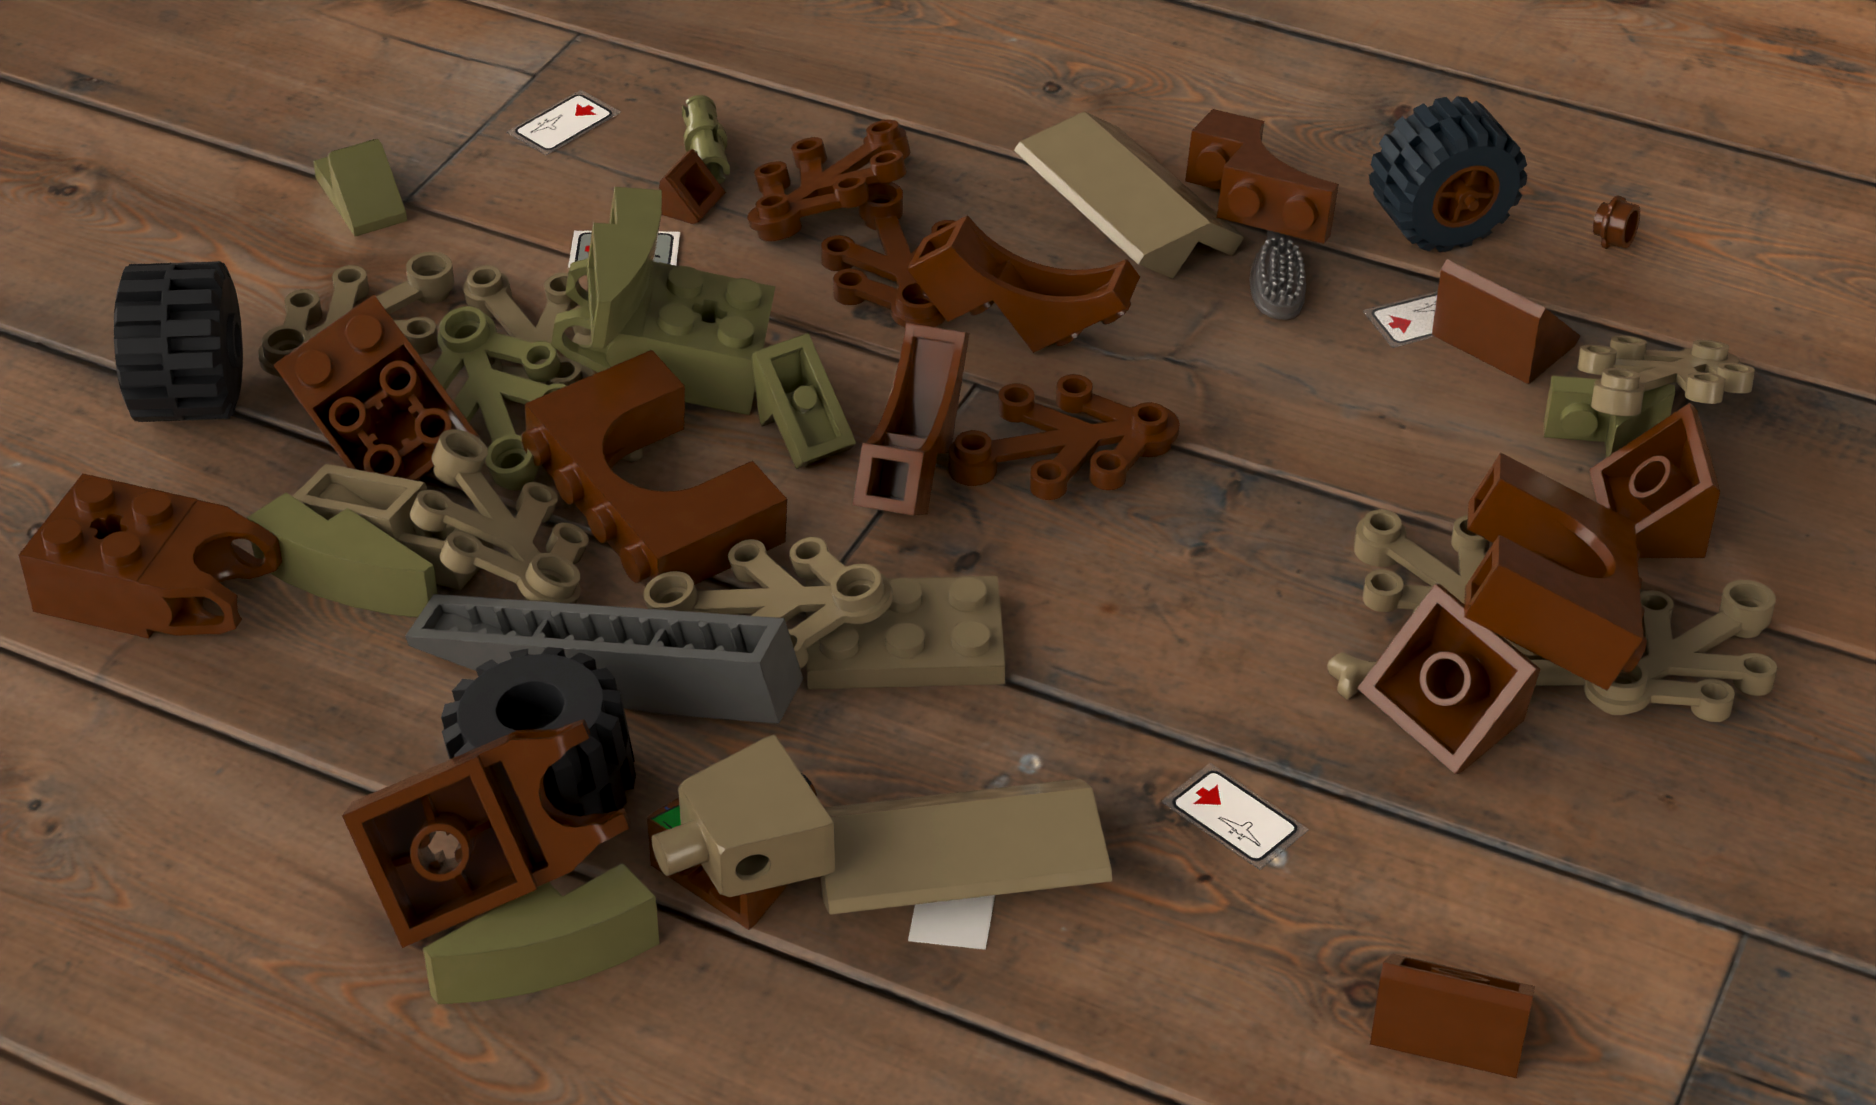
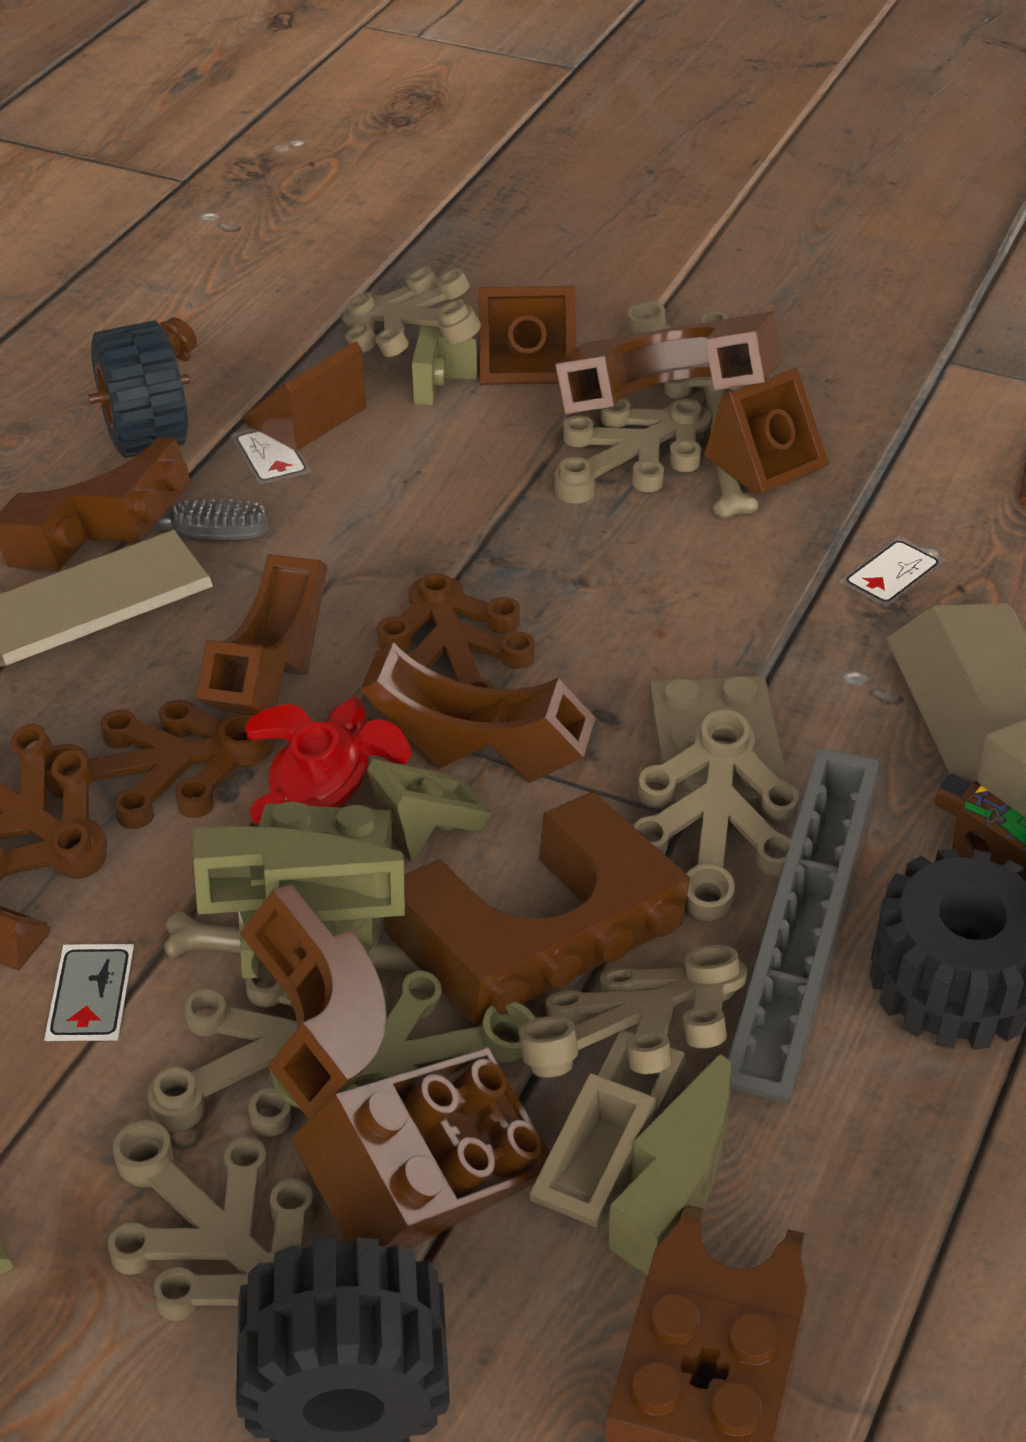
camera: 90 degrees left, 0 degrees up
(492, 313) = (332, 994): none -> reddish brown arch
(861, 339) = (323, 759): none -> red animal

